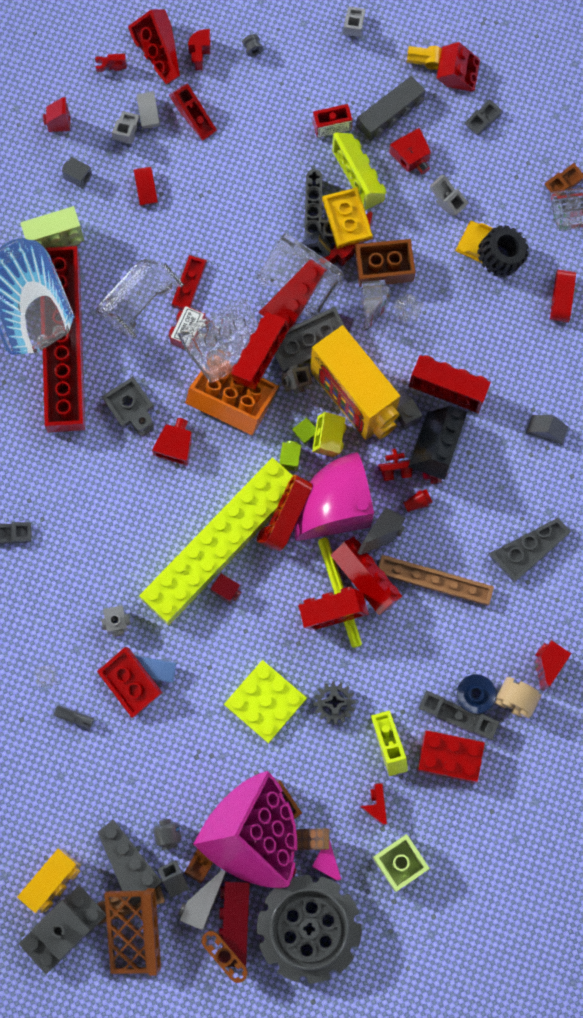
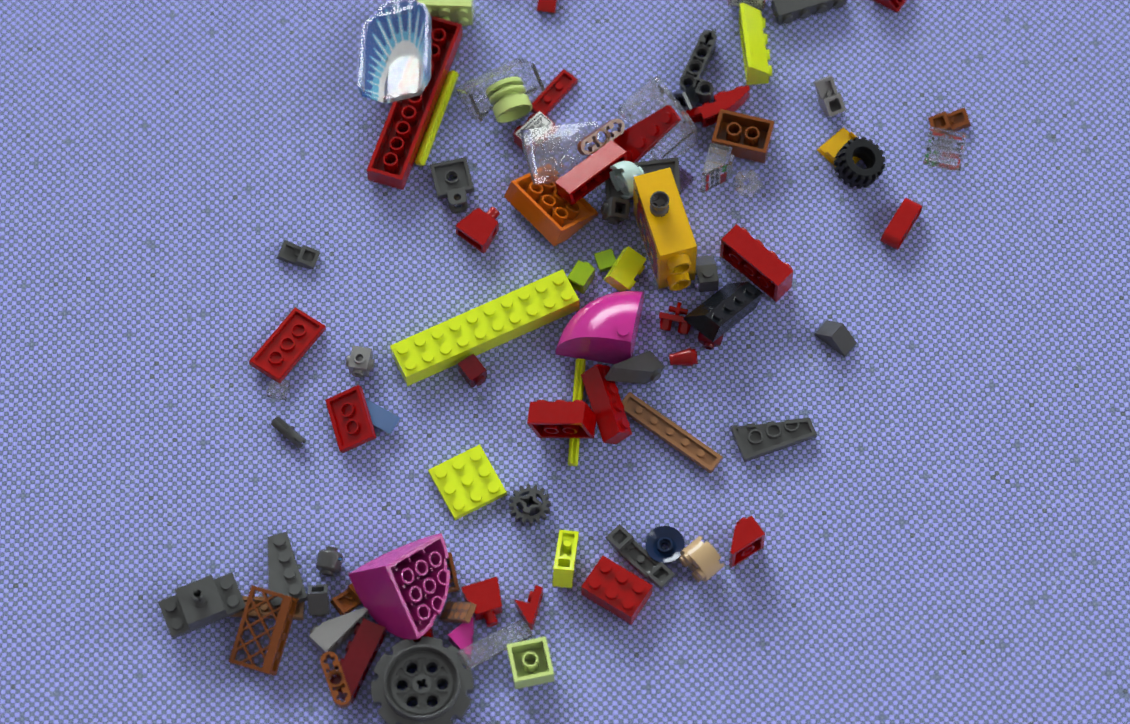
camera: 25 degrees right, 10 degrees down
(37, 629) = (287, 345): none -> red tile
(49, 881) = (208, 558): yellow brick -> none
(88, 347) = (436, 118): none -> neon yellow axle
(149, 302) = (508, 99): none -> yellowish green wheel
(262, 308) = (608, 136): none -> beam
(286, 514) = (553, 322): red beam -> none
(296, 344) = (623, 177): none -> light aqua cylinder
(331, 814) = (486, 597): none -> red torso
(347, 217) = (723, 83): yellow tile -> none
(351, 363) = (659, 199): none -> dark grey wheel
(359, 857) = (494, 644): none -> clear tile
(412, 152) = (812, 46): red torso -> none
(483, 117) = (895, 40): dark grey slope -> none

